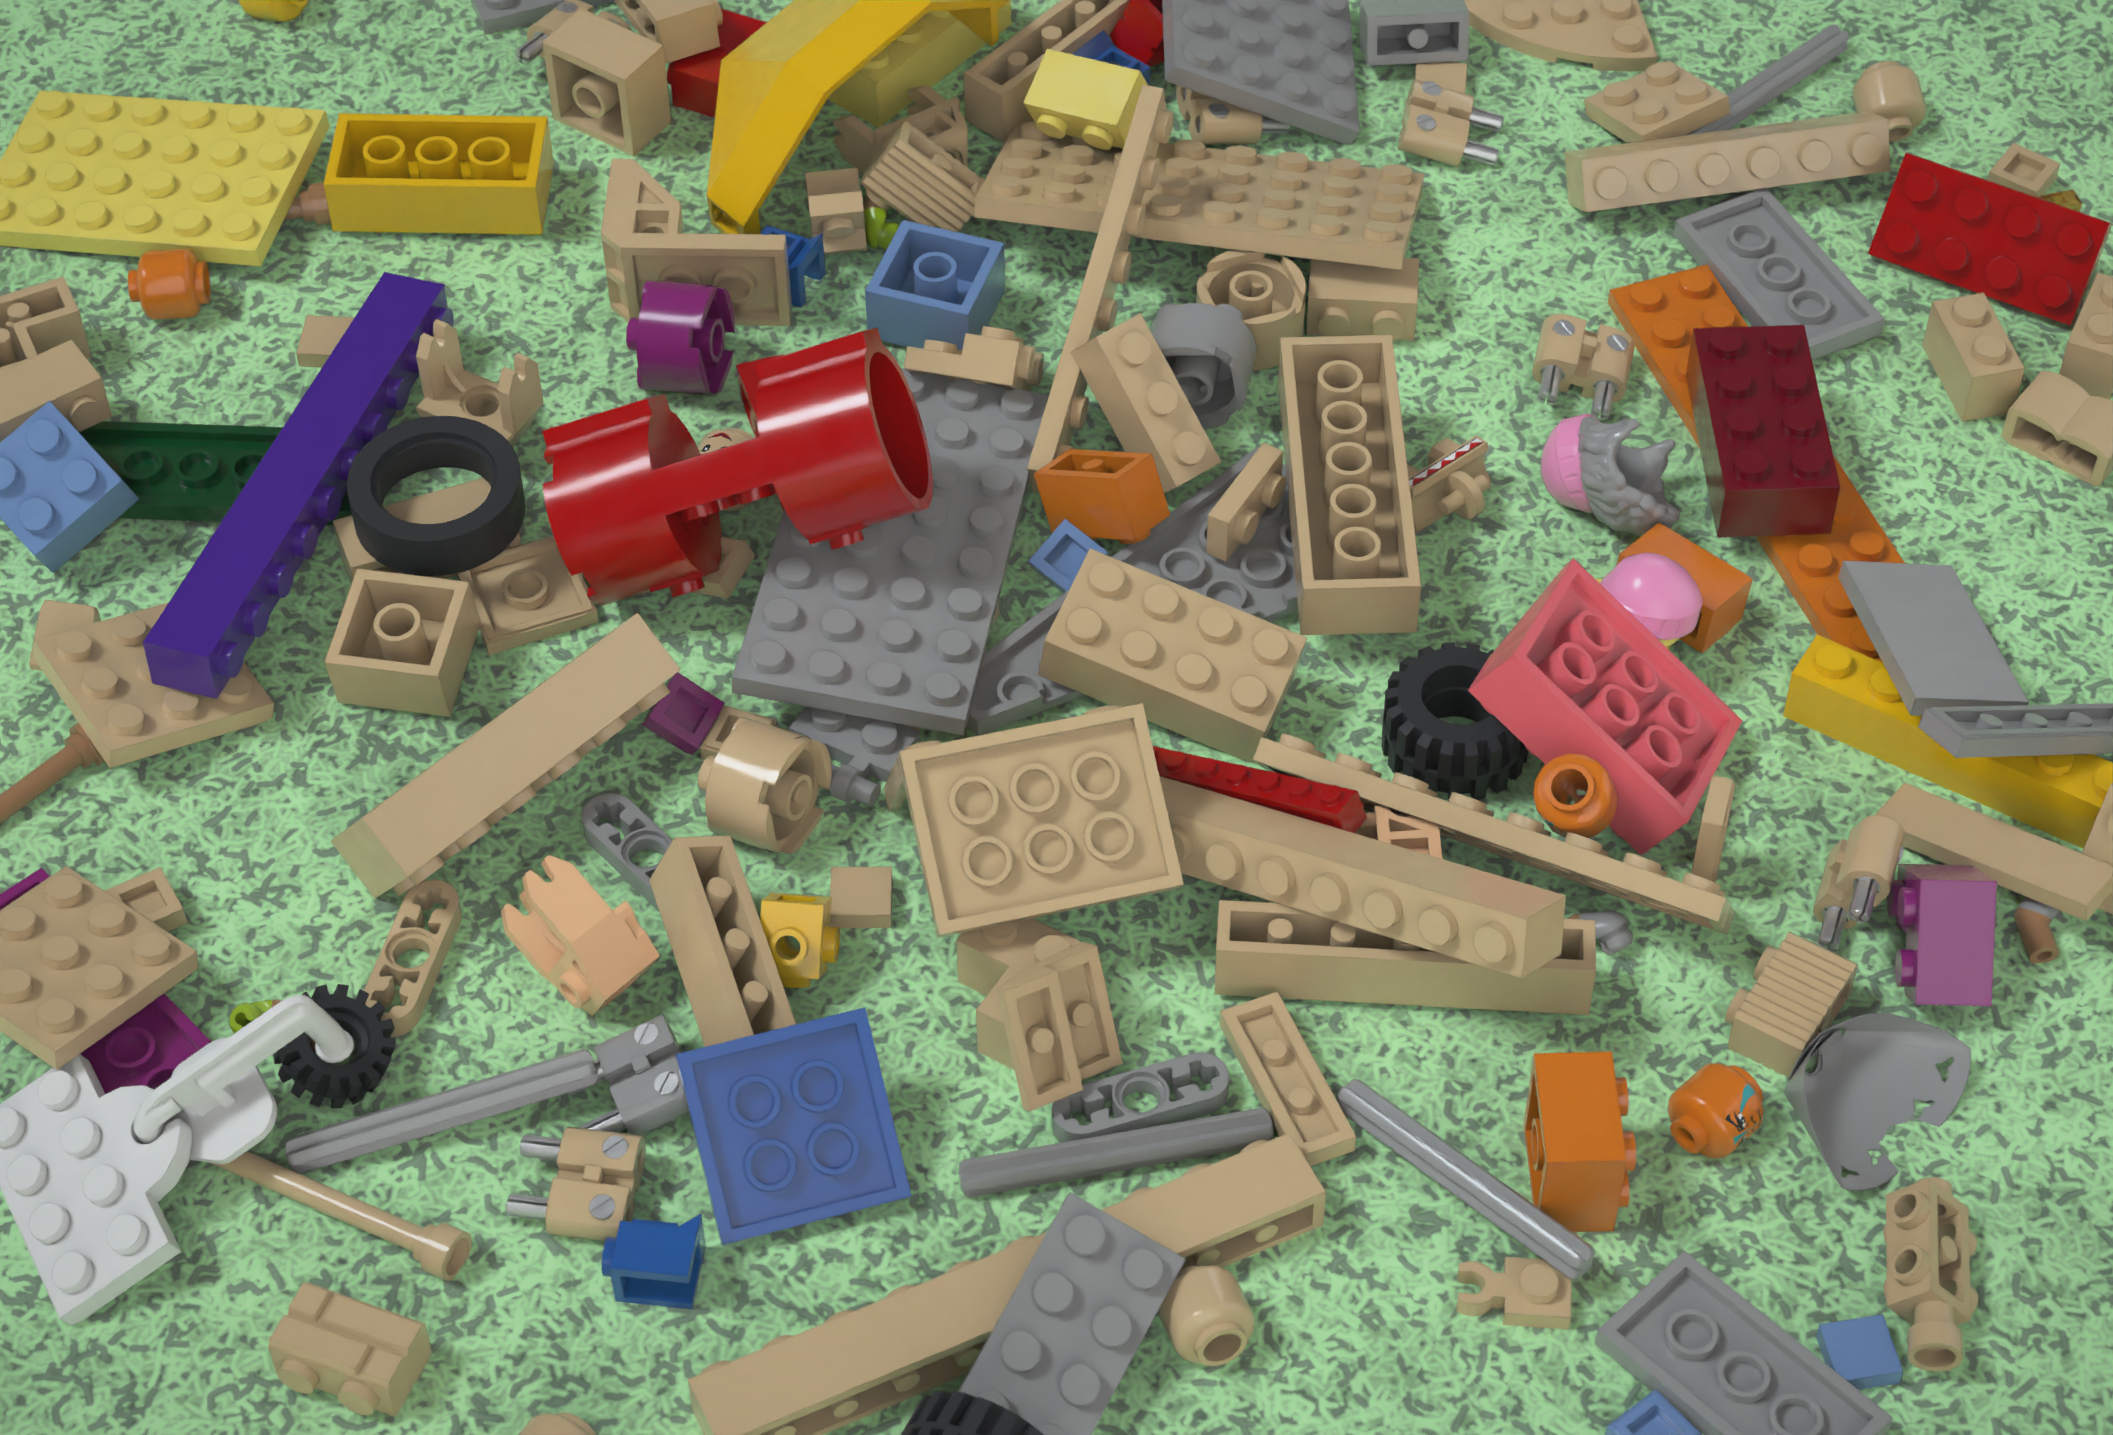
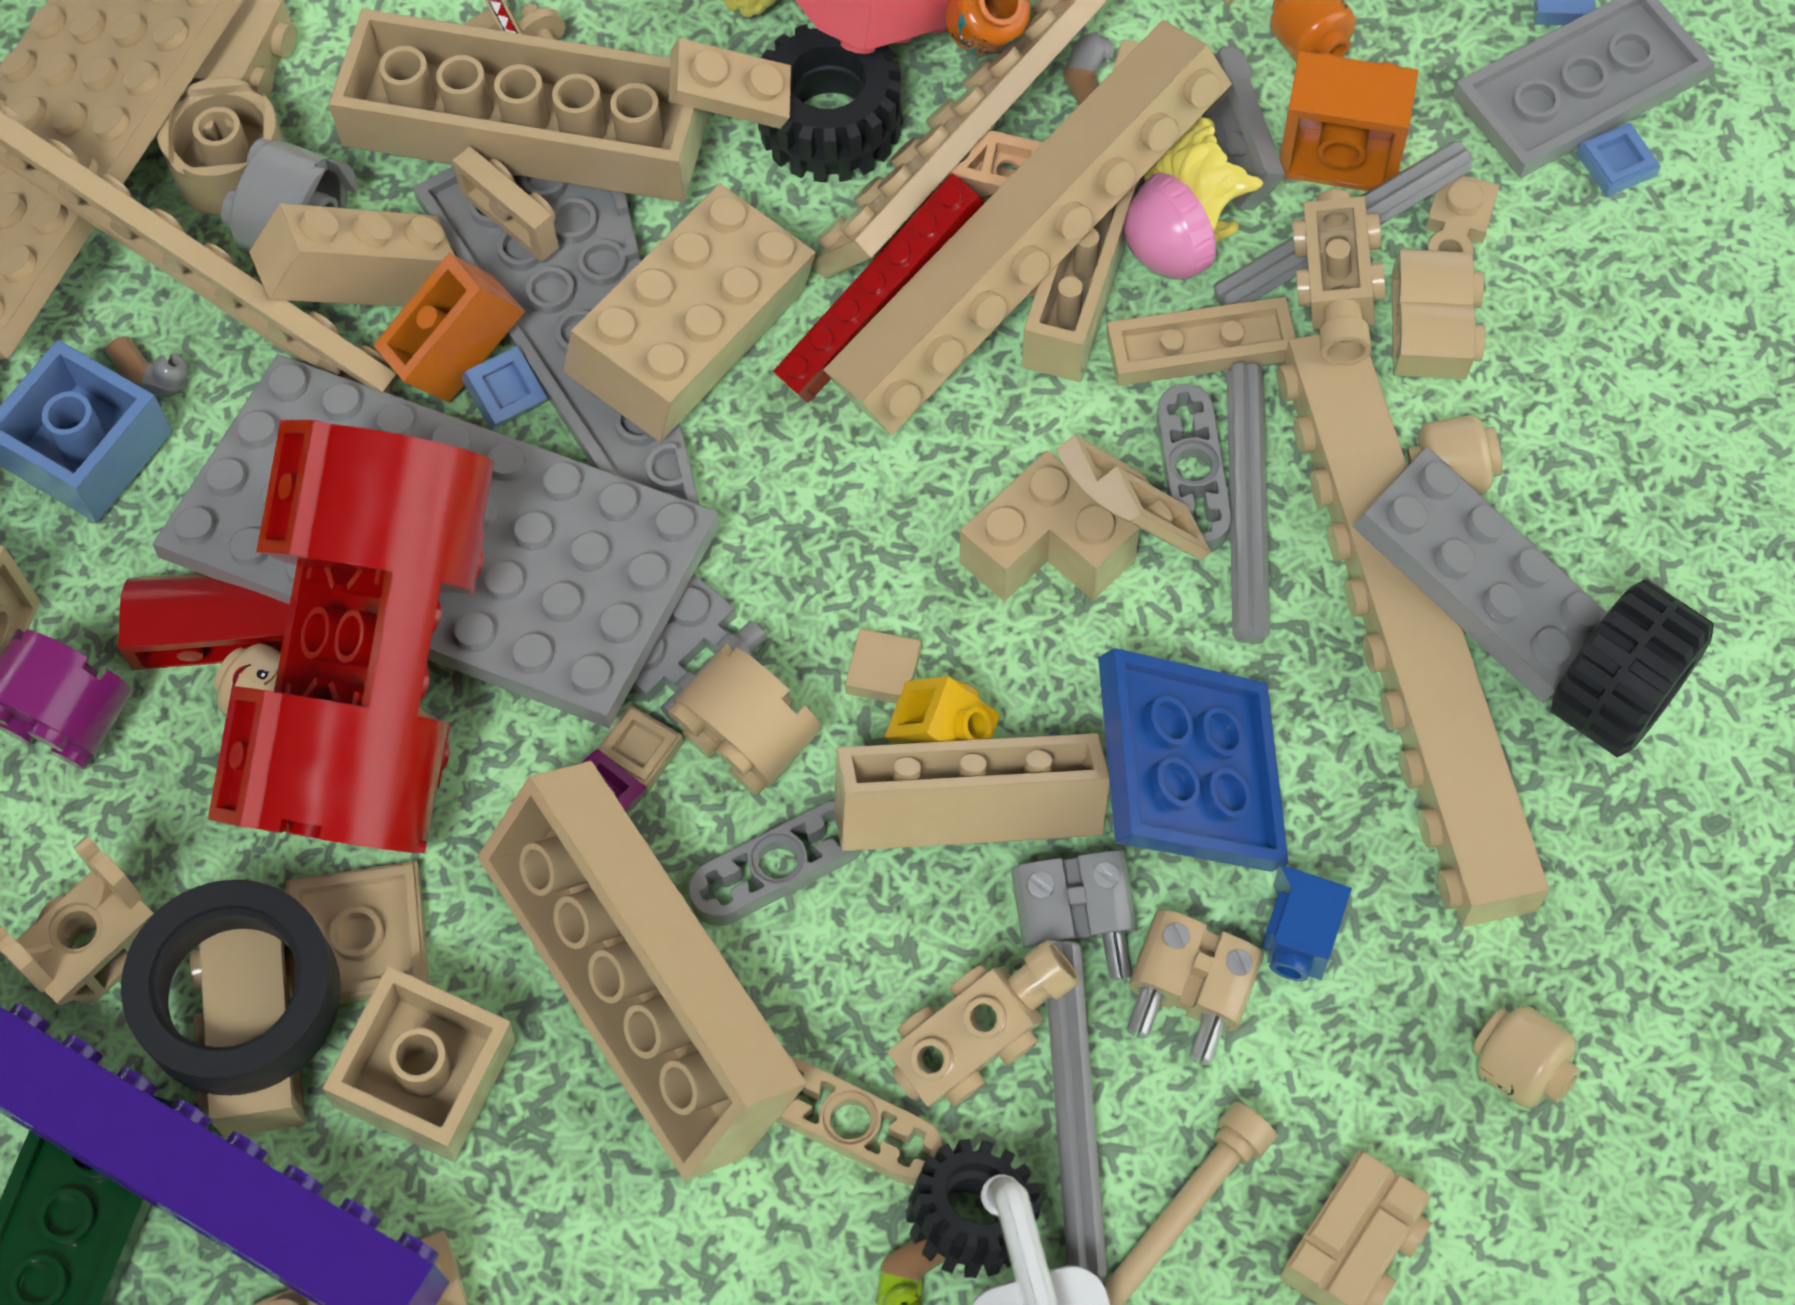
camera: 75 degrees left, 15 degrees up
(500, 1014) = (964, 1041): none -> tan brick
(578, 937) = (910, 931): light nougat piece -> none
(987, 358) = (218, 402): tan plate -> none
(1026, 318) = (156, 377): none -> arm
(1037, 819) = (883, 443): tan bracket -> none
(1374, 1154) = (1339, 273): none -> tan brick
(1381, 1274) = (1435, 314): none -> tan brick
(1405, 608) = (729, 83): none -> tan plate
(1422, 1017) = (1177, 209): none -> hair
(1510, 1087) = (1243, 130): none -> light grey hinge

